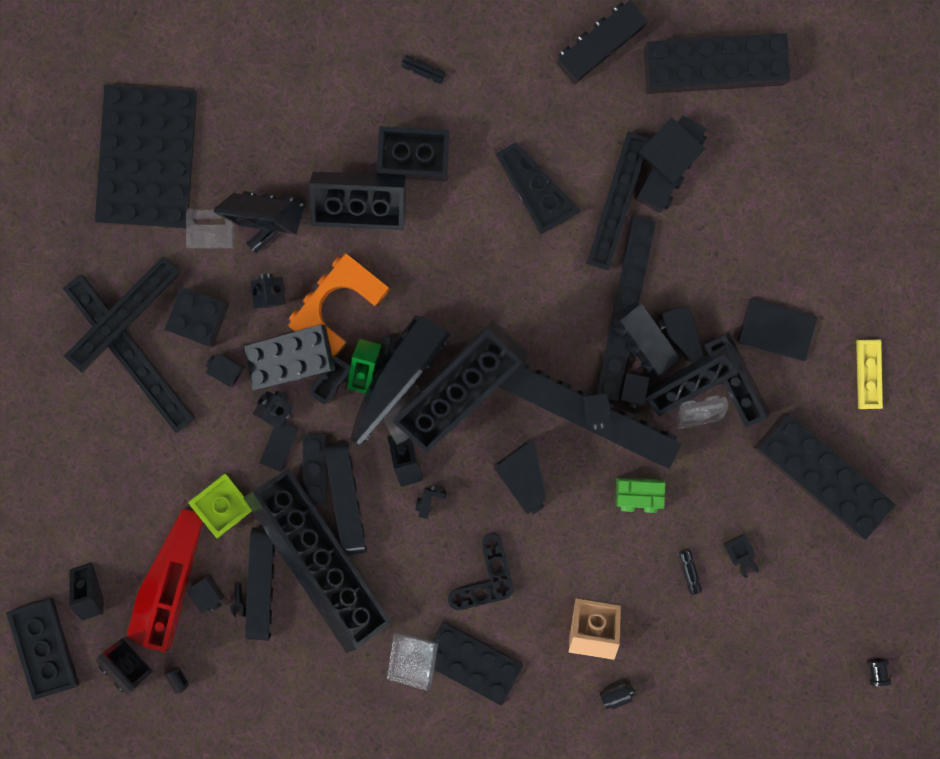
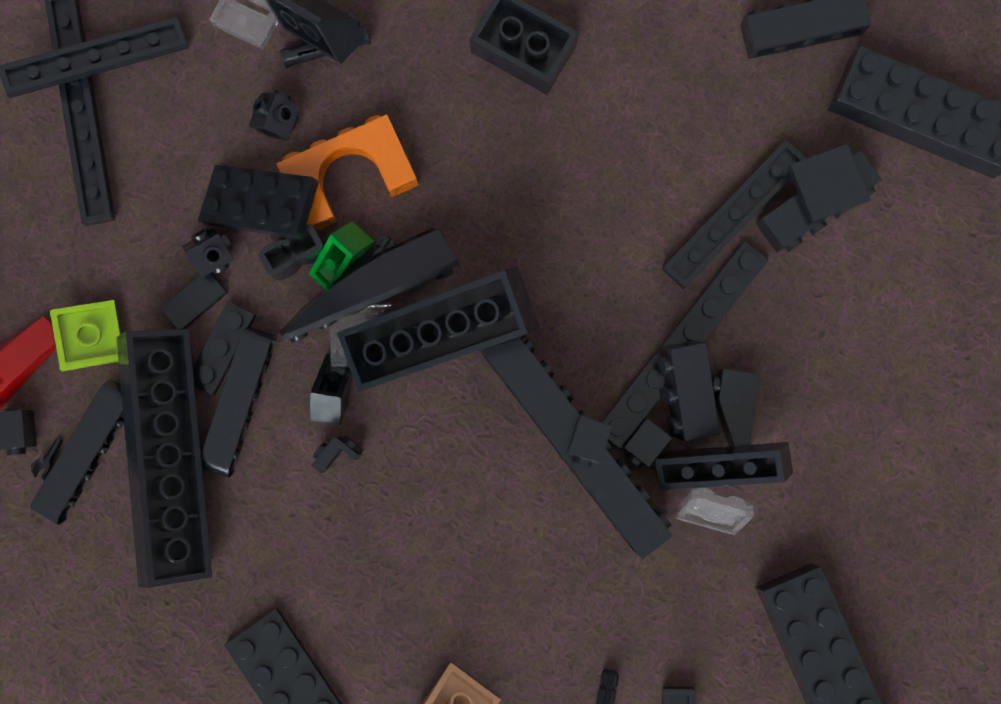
camera: 25 degrees right, 5 degrees down
(196, 317) = (178, 103): black brick -> none
(224, 369) = (177, 179): black brick -> none
(357, 200) = (431, 61): black brick -> none
(412, 661) = (213, 638): clear plate -> none
(491, 585) = (355, 594): black beam -> none
(523, 477) = (459, 481): black slope -> none
(539, 195) = (646, 162): black wing -> none
(640, 493) = (592, 574): bright green brick -> none
(741, 386) = (777, 507): black brick -> none
(777, 330) = (852, 459): black tile -> none
(869, 374) = (939, 569): light yellow tile -> none

